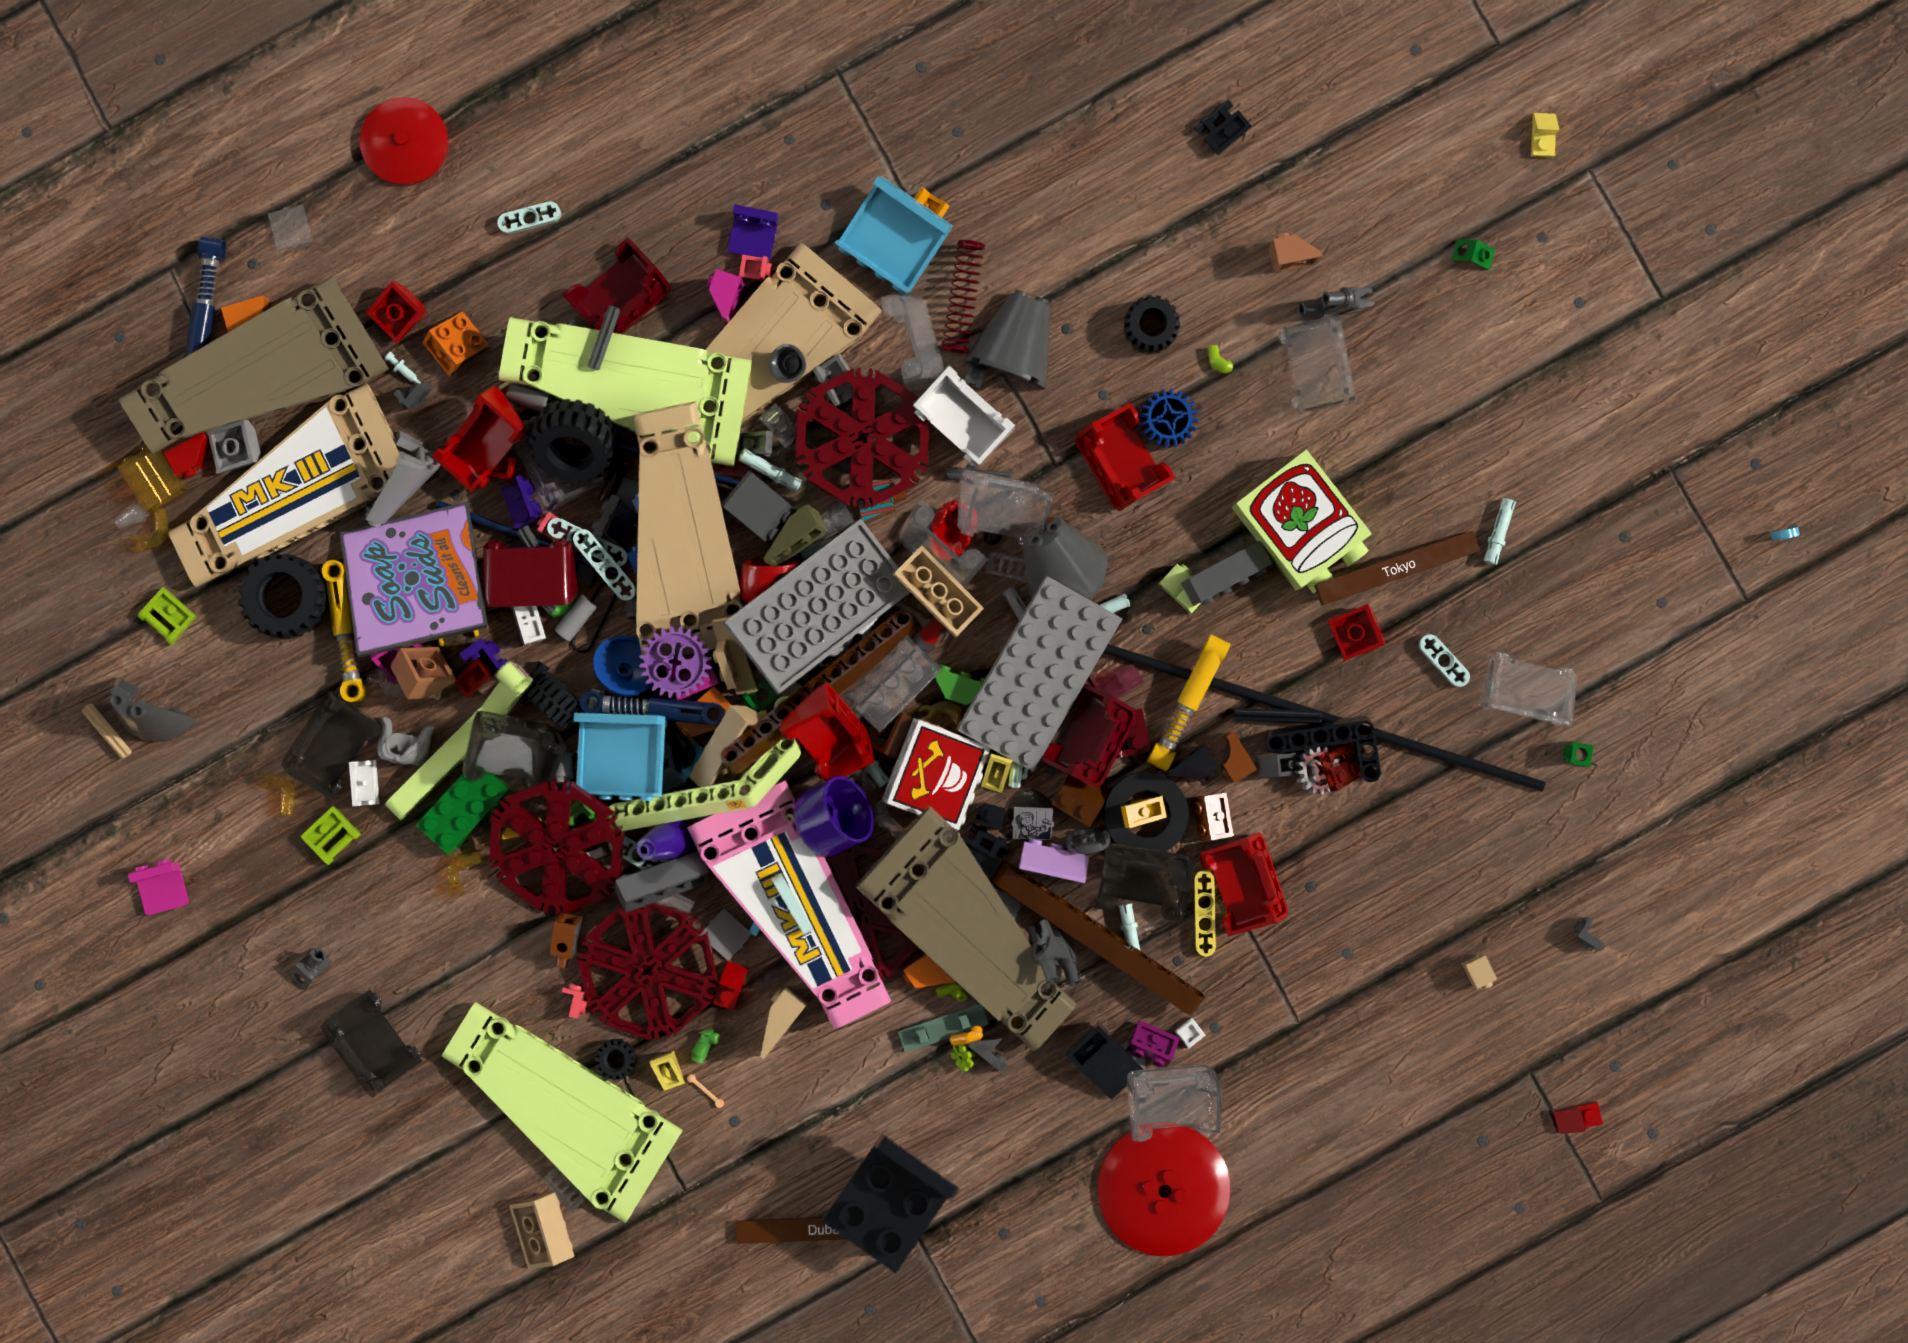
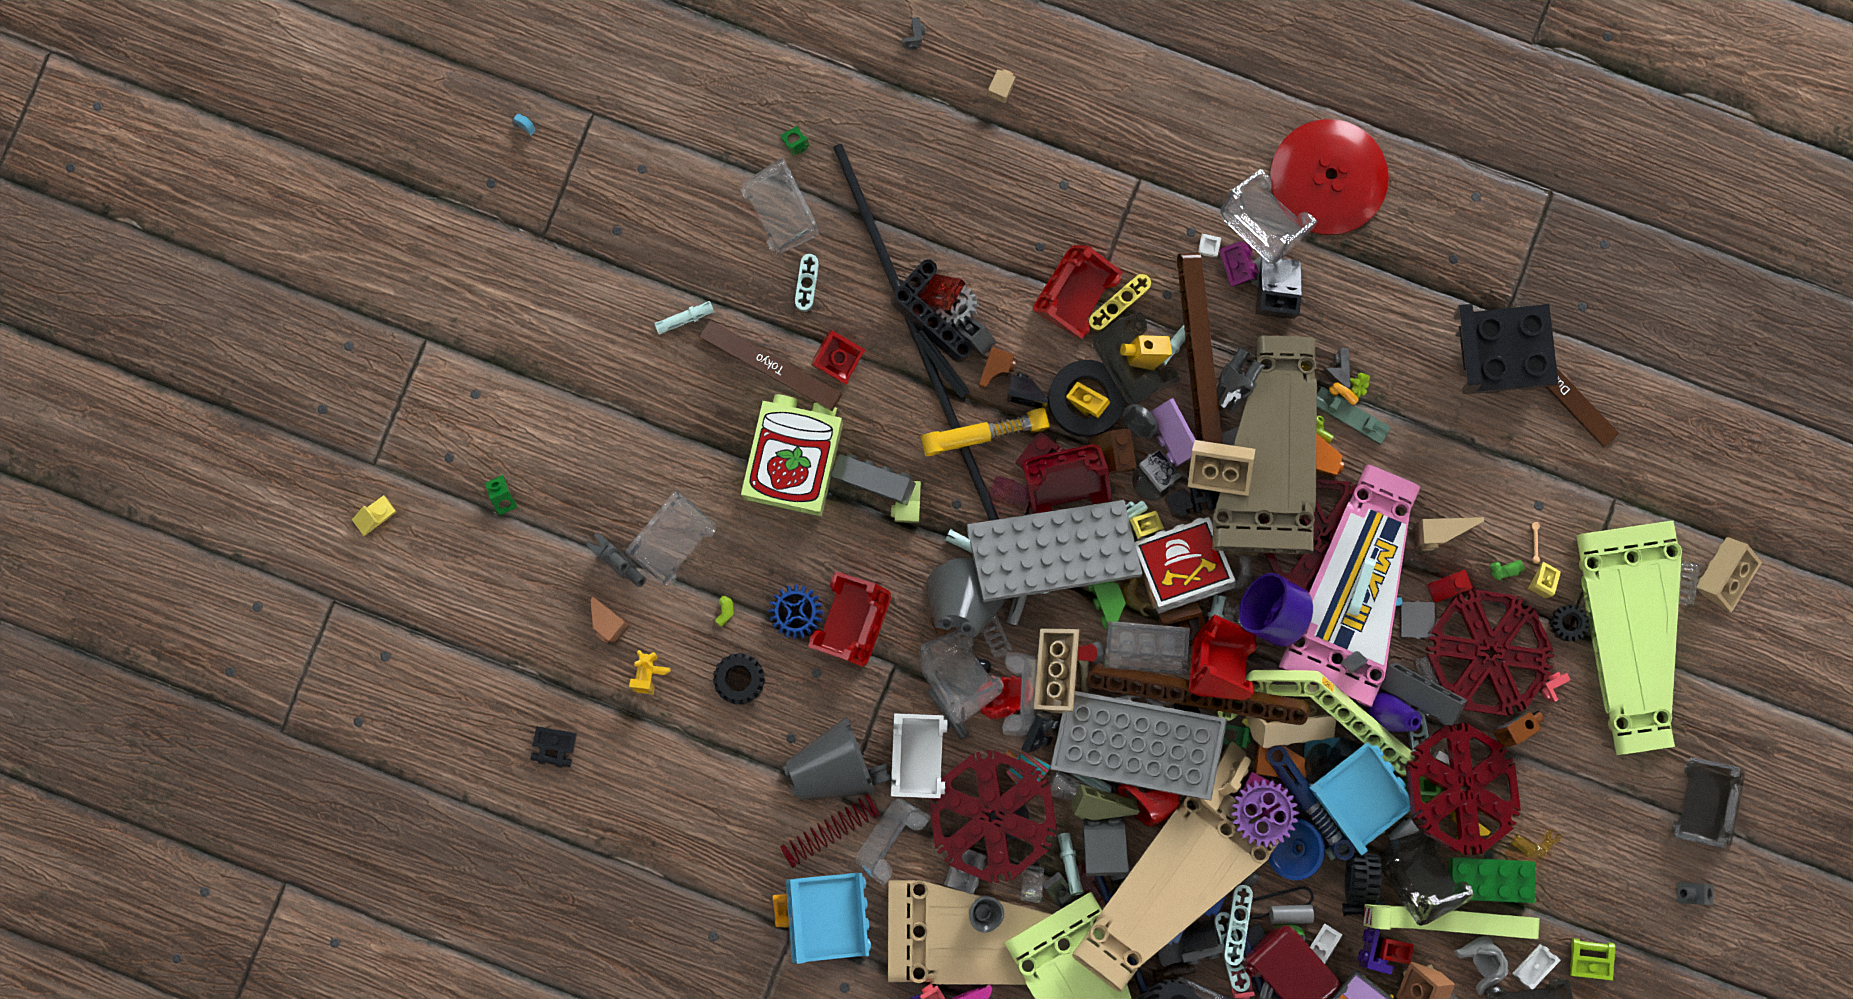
camera: 125 degrees left, 5 degrees down
(735, 843) = (1354, 662): none -> dark grey slope
(900, 532) = (1035, 736): none -> black plate
(991, 870) = (1221, 467): none -> tan slope
(1143, 896) = (1147, 351): none -> yellow torso
(1212, 817) = (1049, 350): bracket -> none
(1224, 252) = (645, 669): none -> yellow piece

